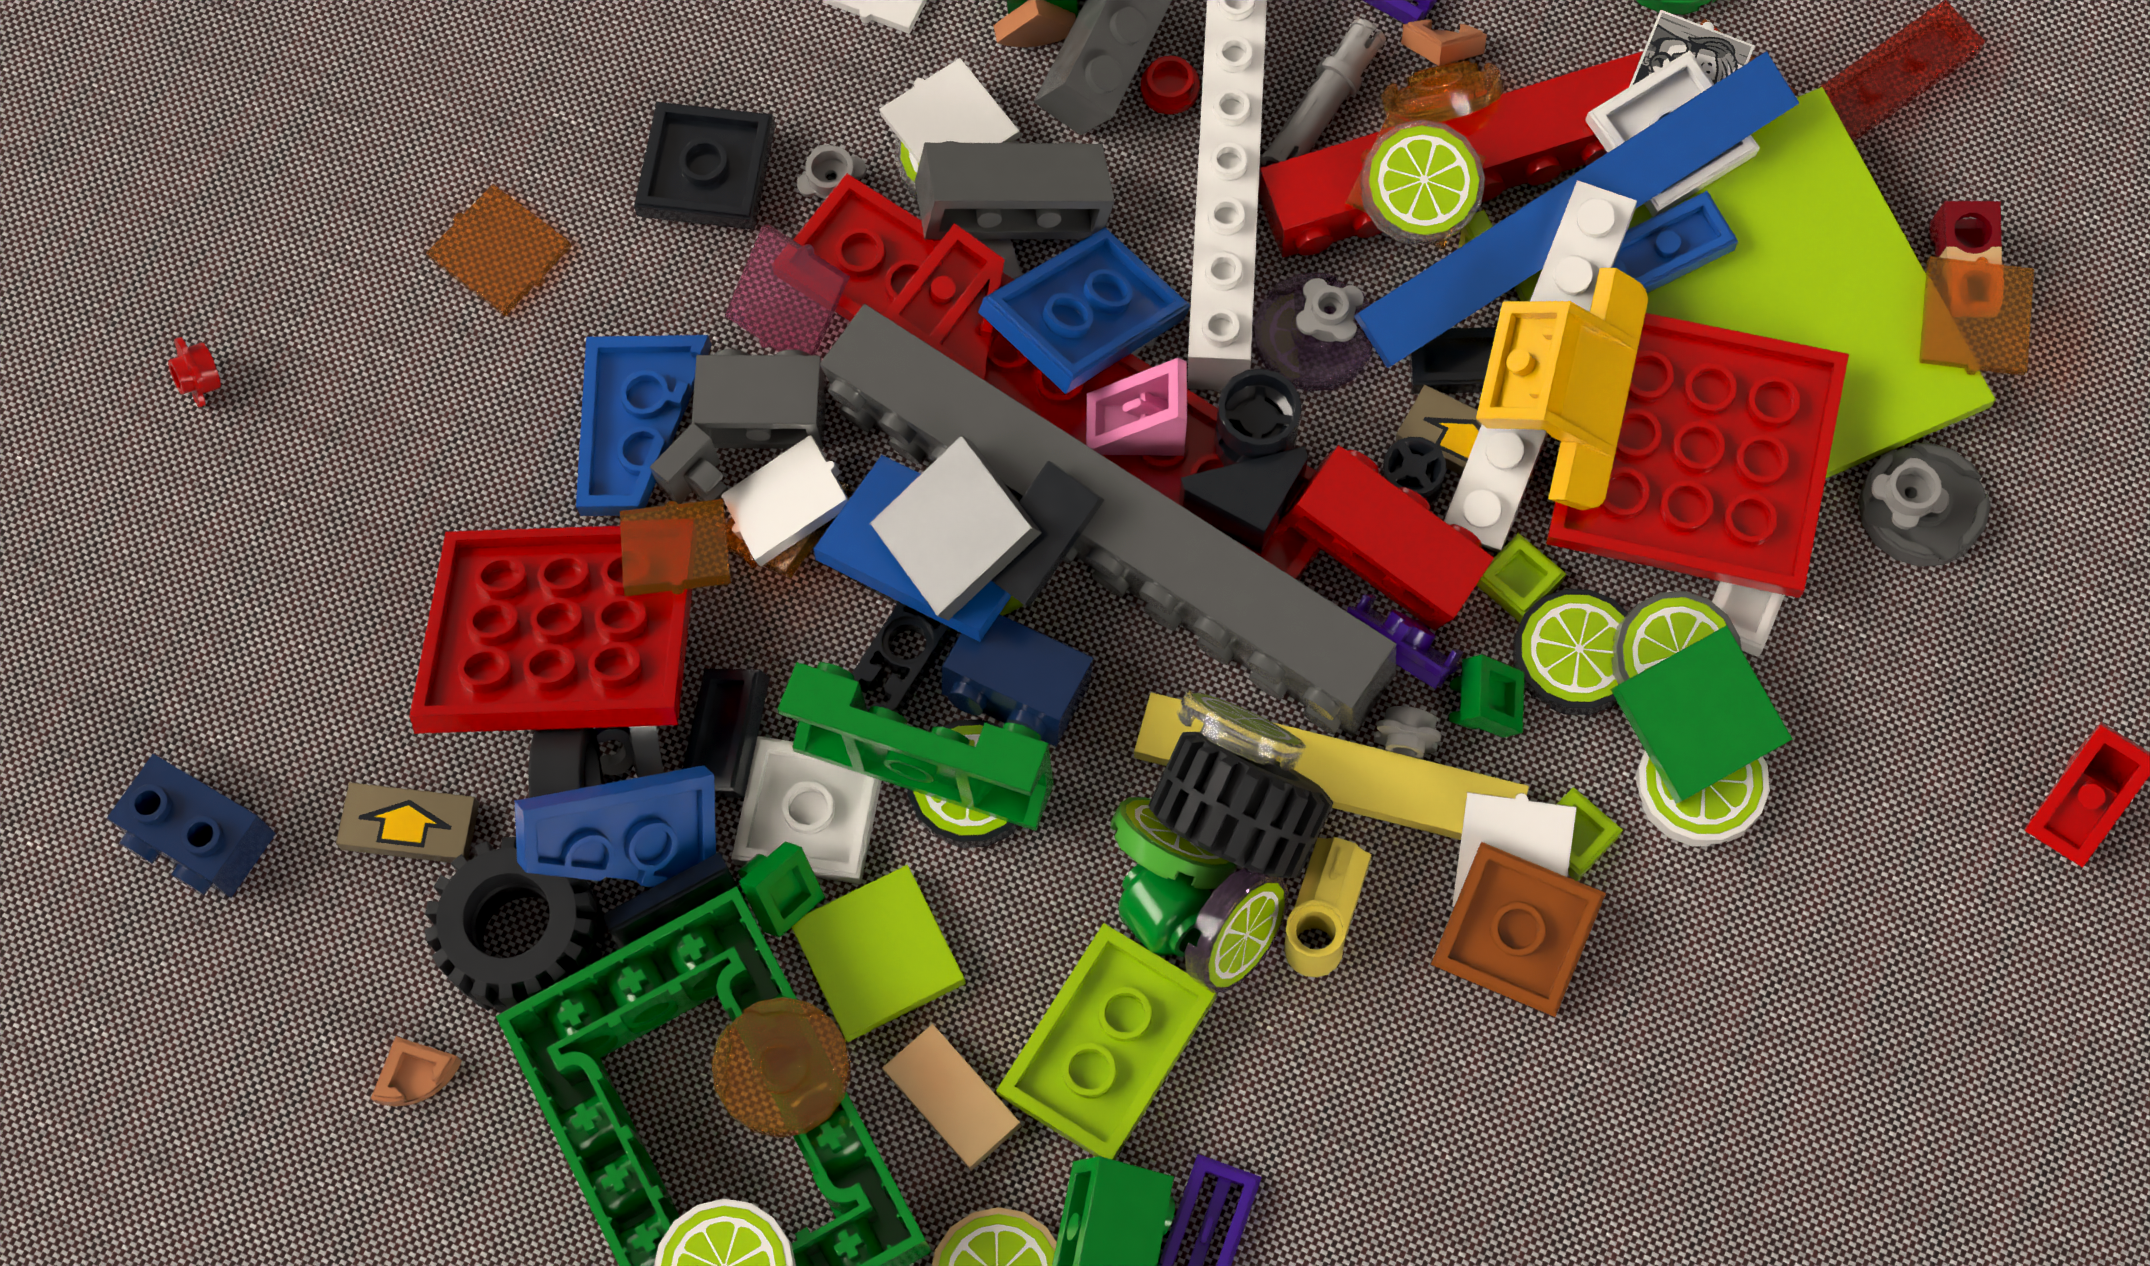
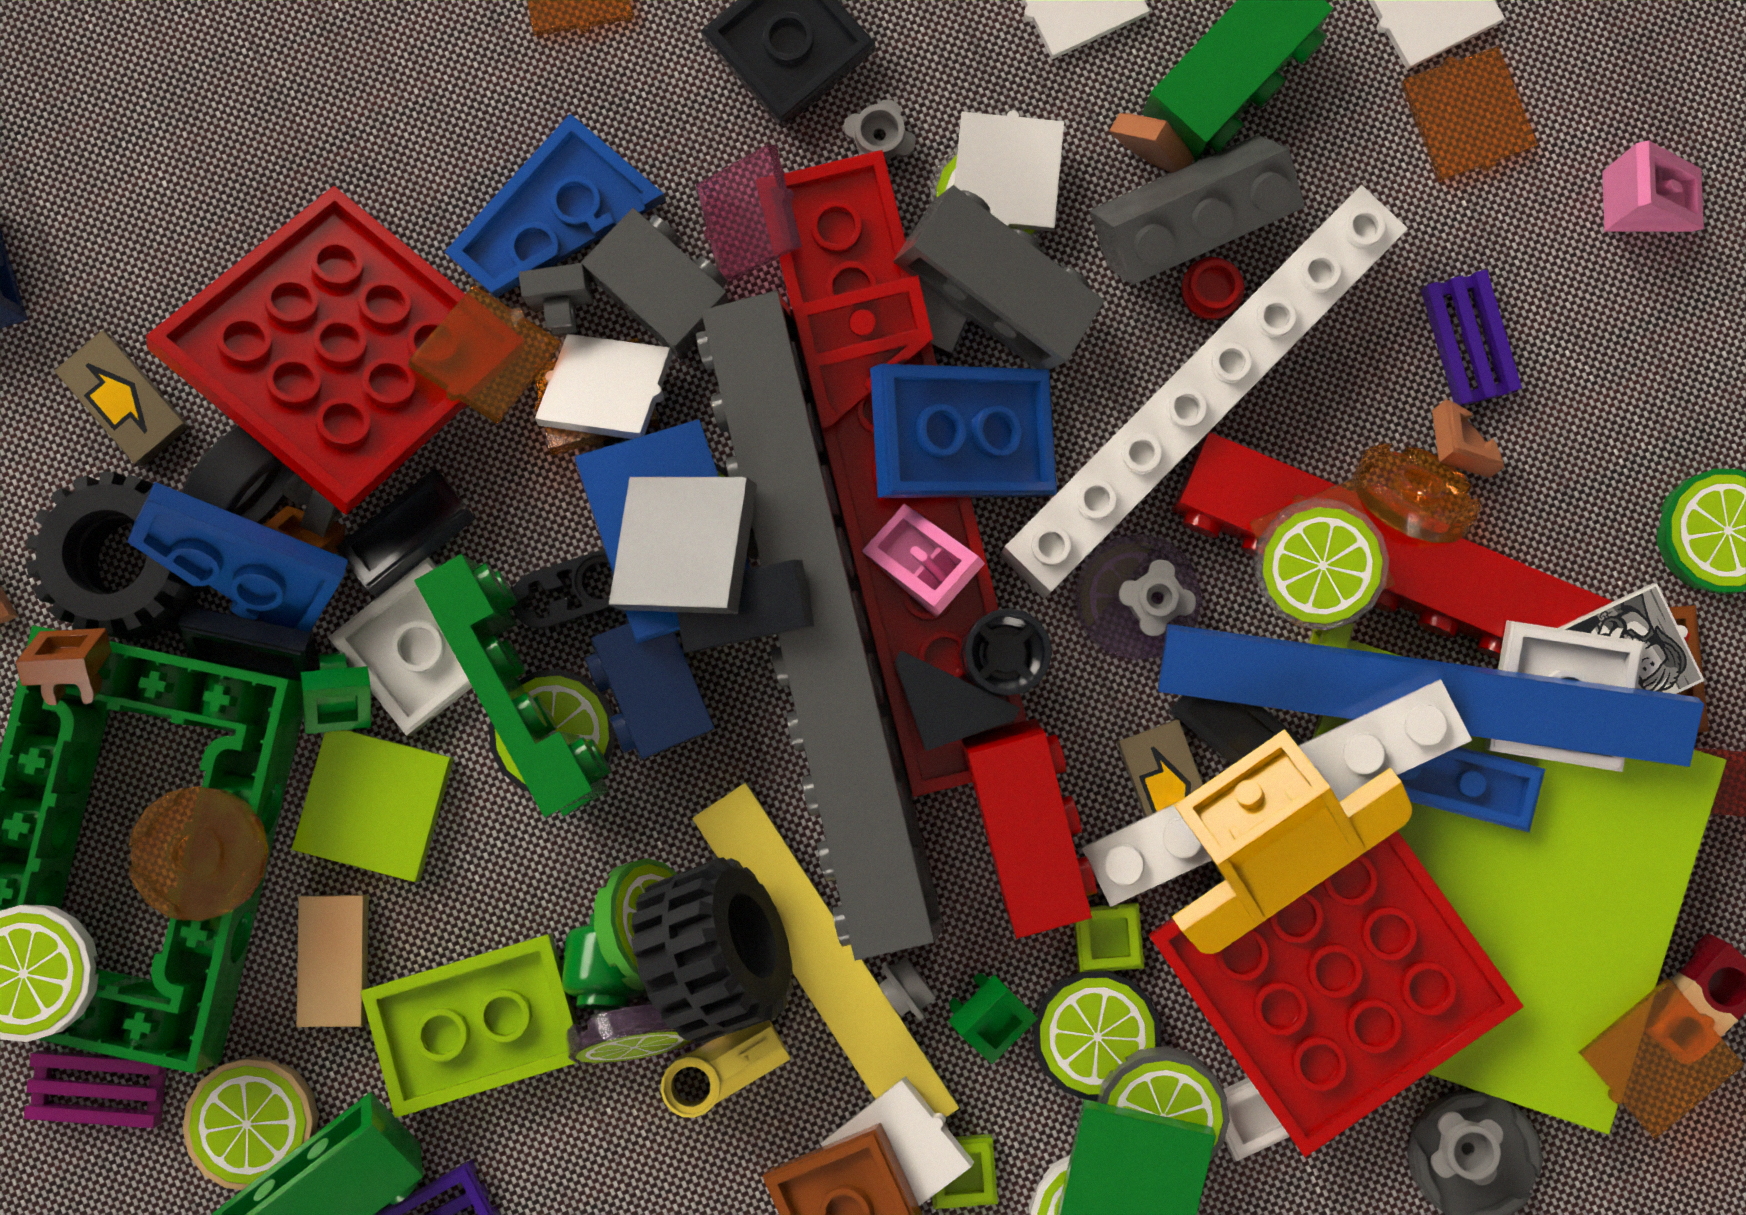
camera: 35 degrees right, 15 degrees up
(549, 1003) = (63, 659): none -> dark orange tile
(1241, 730) = (767, 891): clear tile -> none
(1336, 79) = (1347, 400): light grey pin -> none
(1412, 643) = (966, 917): dark purple piece -> none
(1419, 461) = (1112, 786): black wheel -> none

